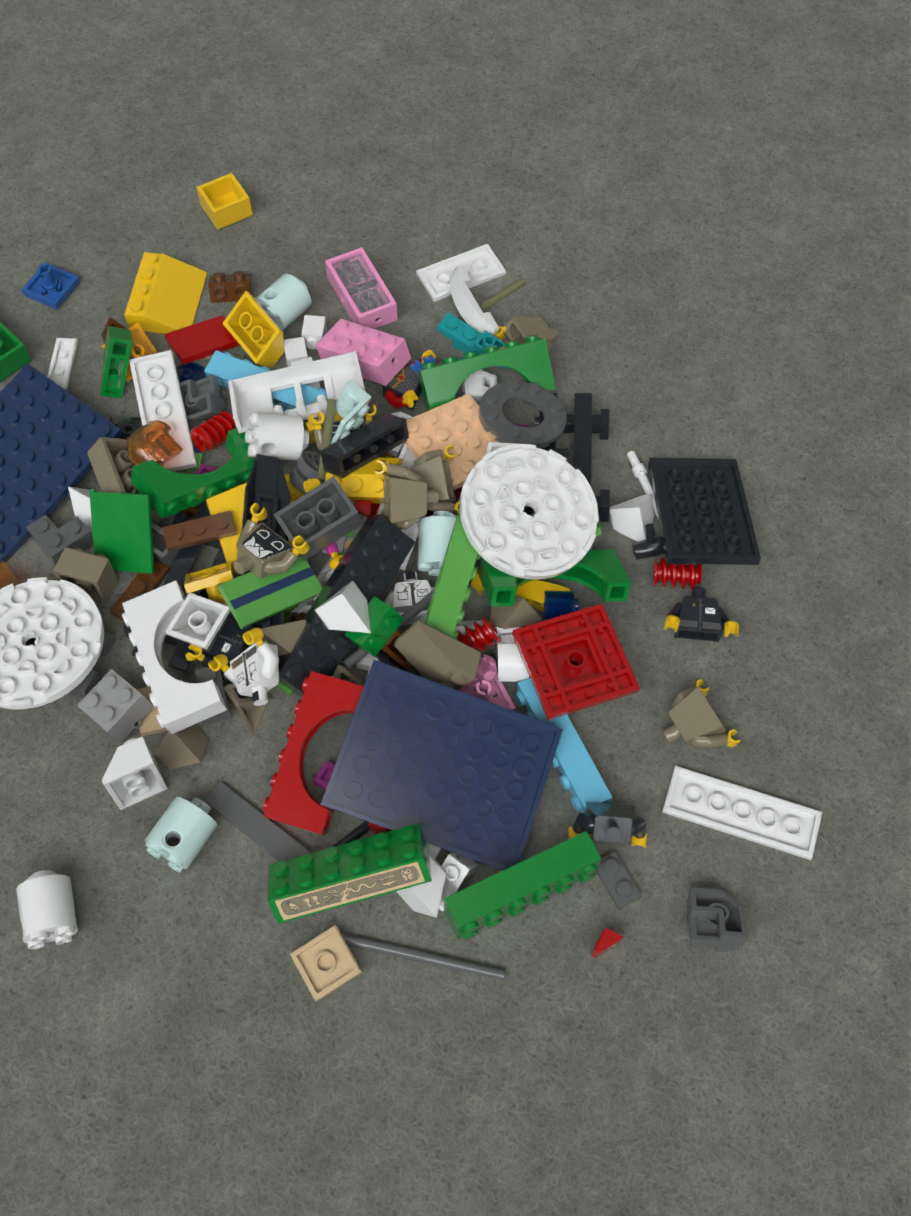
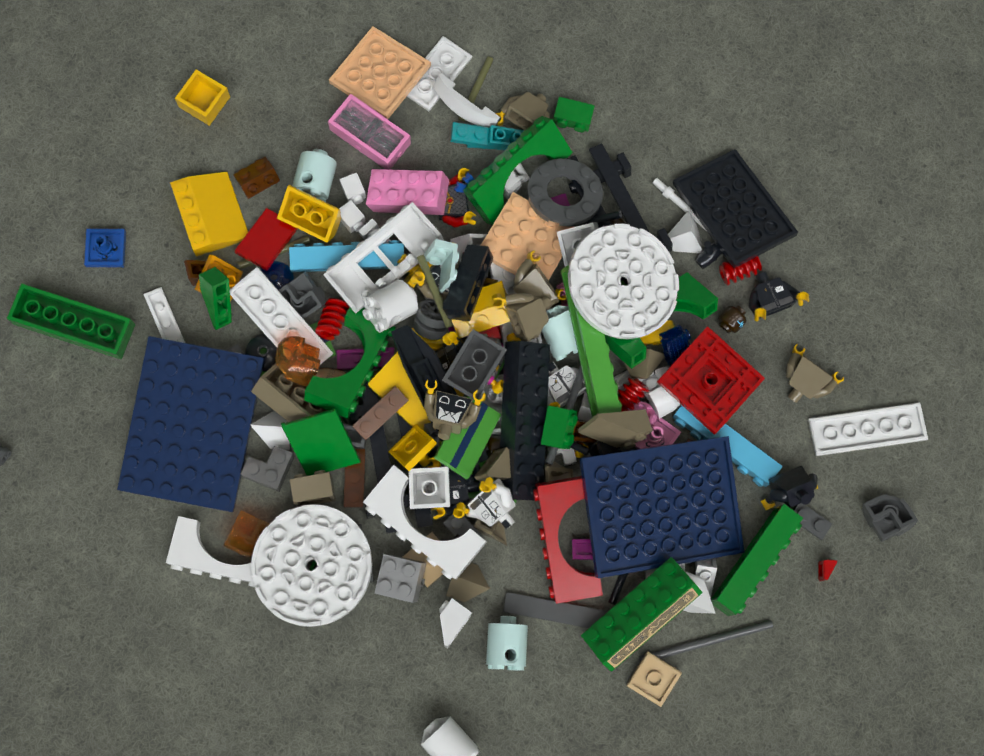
camera: 35 degrees left, 15 degrees up
(346, 610) = (536, 427): white slope -> none
(406, 247) = (380, 72): none -> light nougat plate
(578, 358) = (573, 114): none -> green brick
(640, 620) = (732, 319): none -> dark brown head

